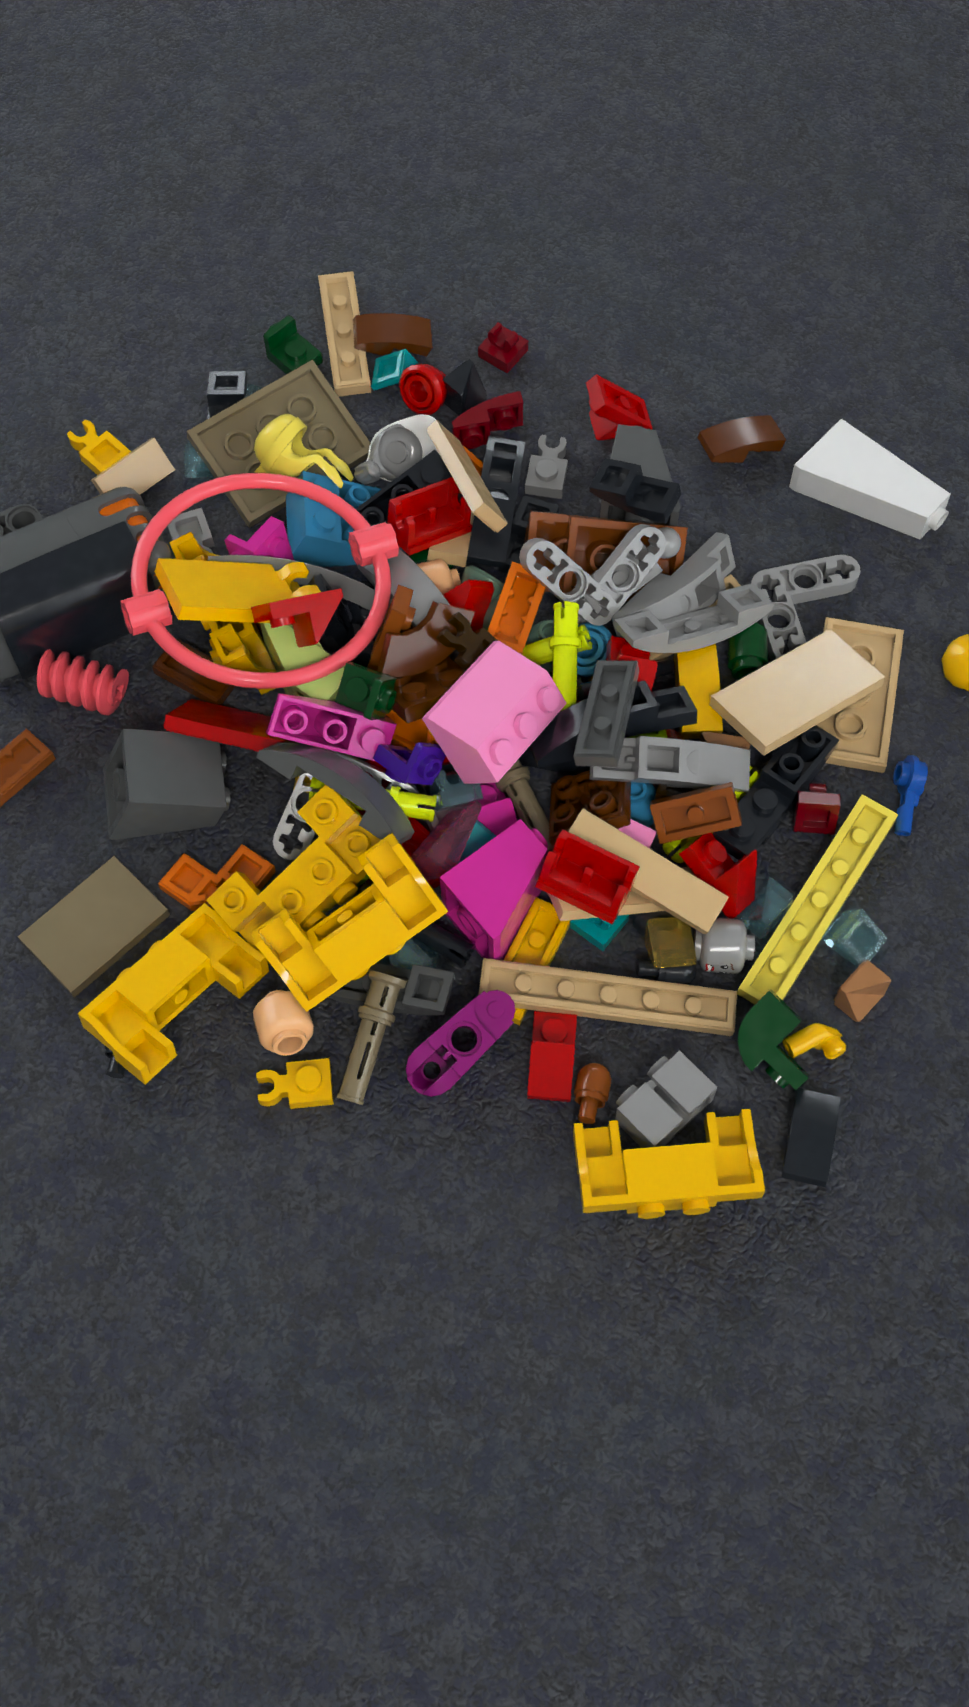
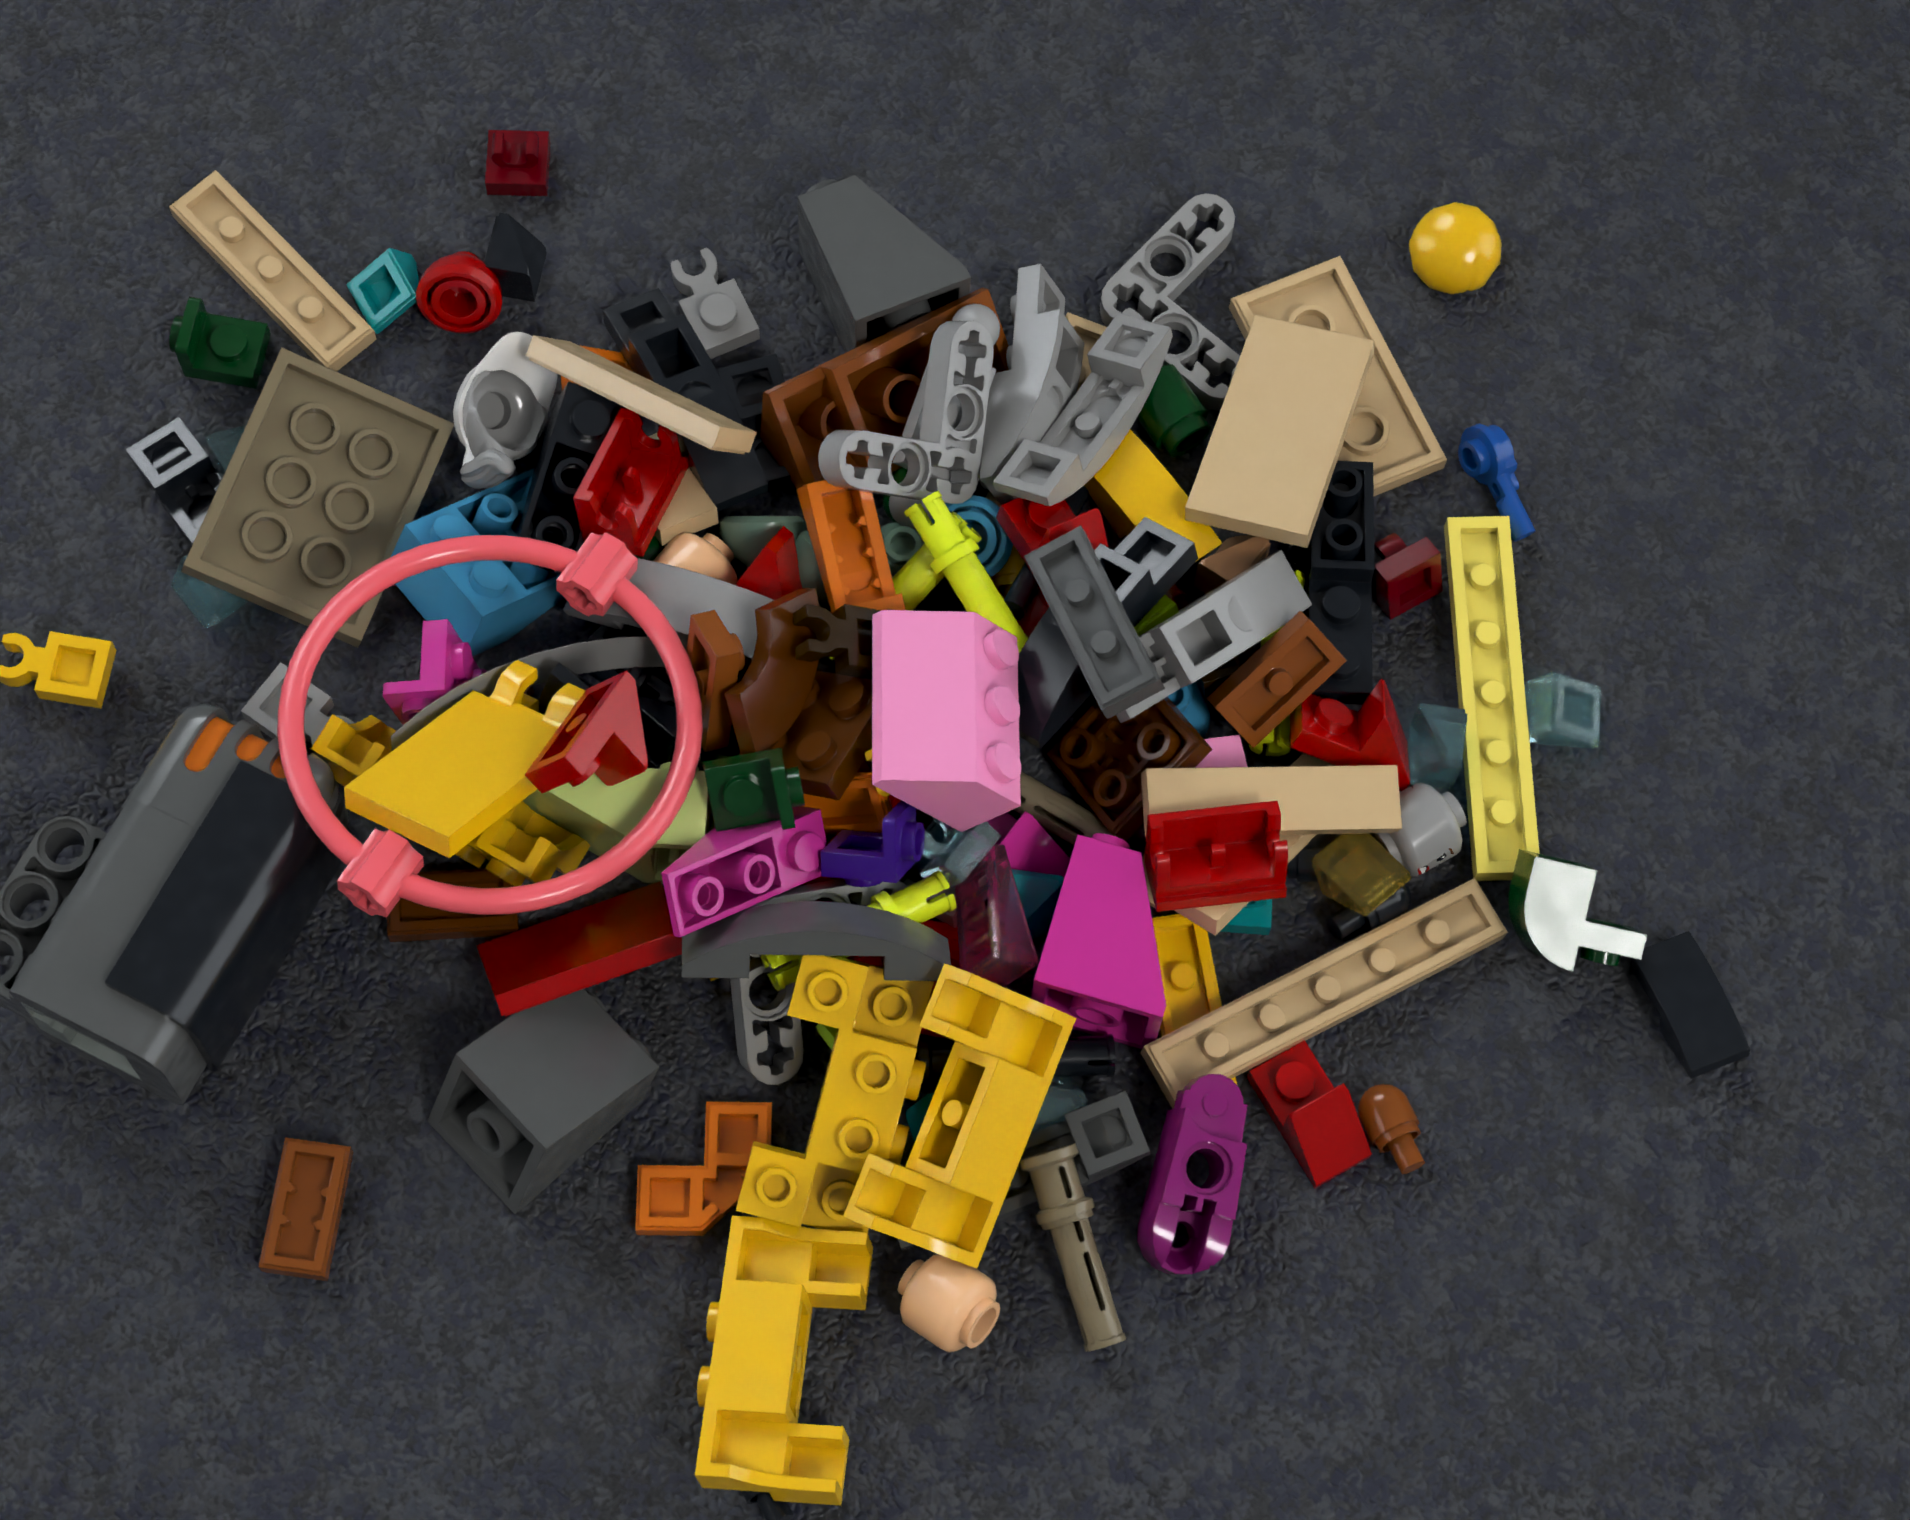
camera: 40 degrees left, 5 degrees up
(81, 685) = (313, 1022): coral piece -> none
(94, 926) = (592, 1345): dark tan tile -> none
(136, 470) = (139, 673): tan tile -> none
(282, 451) = (358, 517): light yellow hair -> none
(305, 1084) = (1029, 1362): yellow plate -> none
(384, 331) = (344, 233): reddish brown slope -> none
(491, 415) = (576, 301): dark red slope -> none
(614, 406) = (748, 168): red slope -> none
(629, 490) = (896, 285): black slope -> none
(665, 1103) = (1491, 1082): light grey piece -> none
(669, 1176) = (1550, 1188): yellow bracket -> none
(735, 438) = (941, 107): reddish brown slope -> none
(818, 1037) = (1612, 869): yellow arm -> none
(862, 991) = (1620, 777): medium nougat slope -> none
(869, 482) = (1157, 71): white slope -> none

